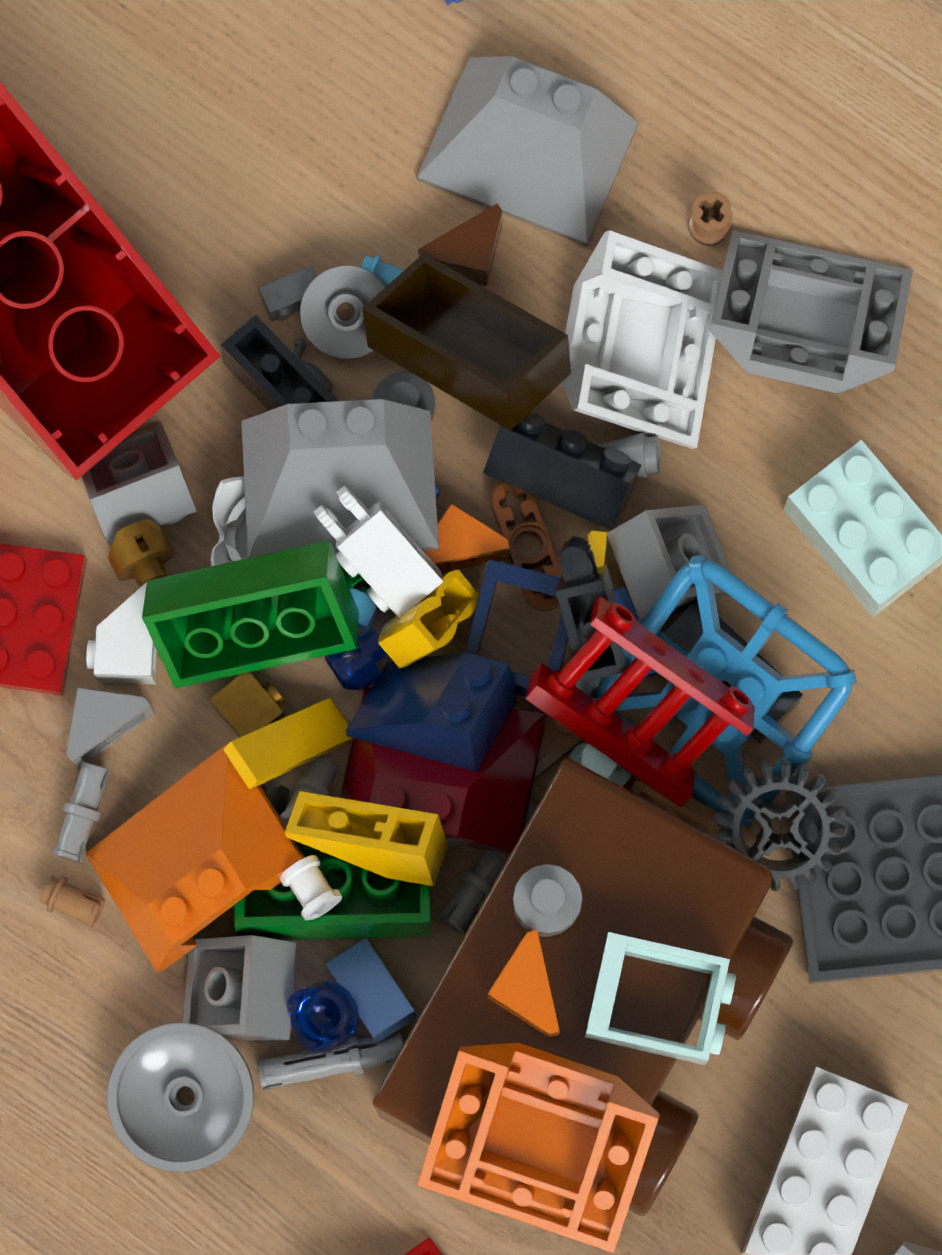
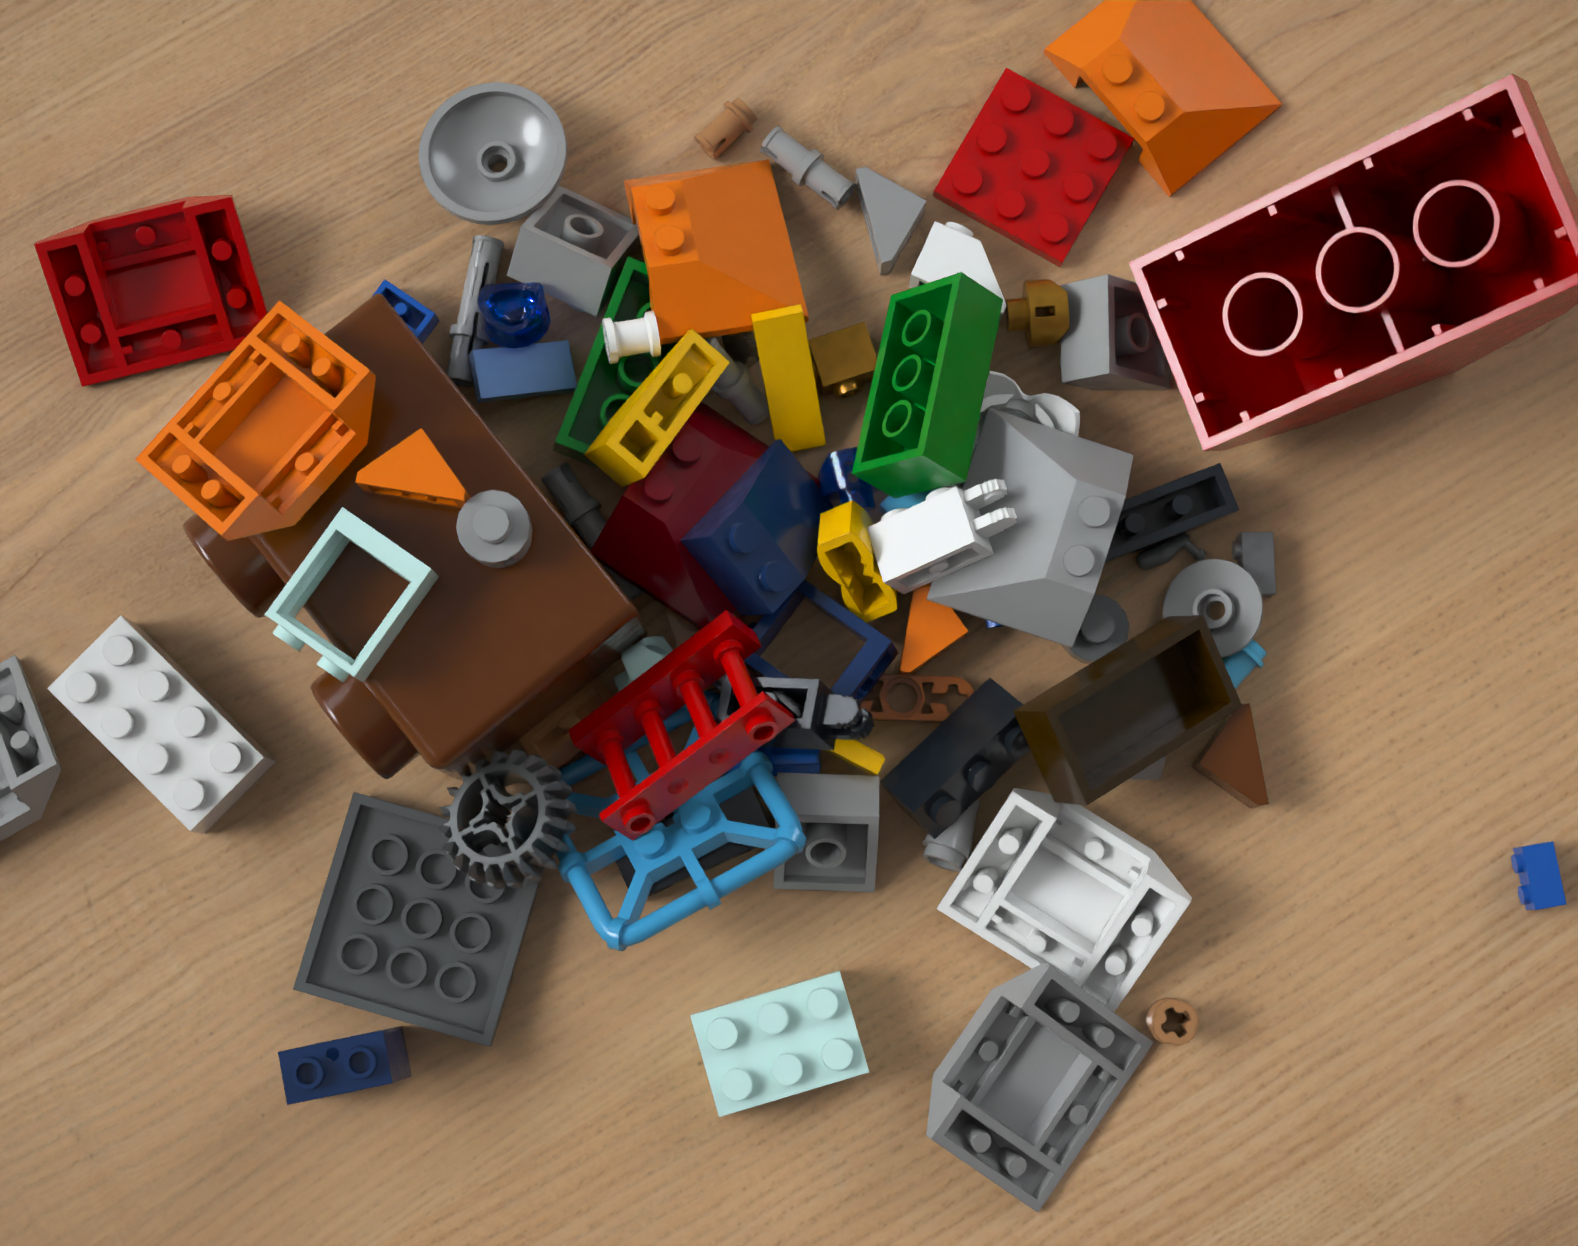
camera: 110 degrees right, 5 degrees up
(358, 1125) = (414, 314): none -> blue piece
(530, 145) = (1322, 868): light grey slope -> none

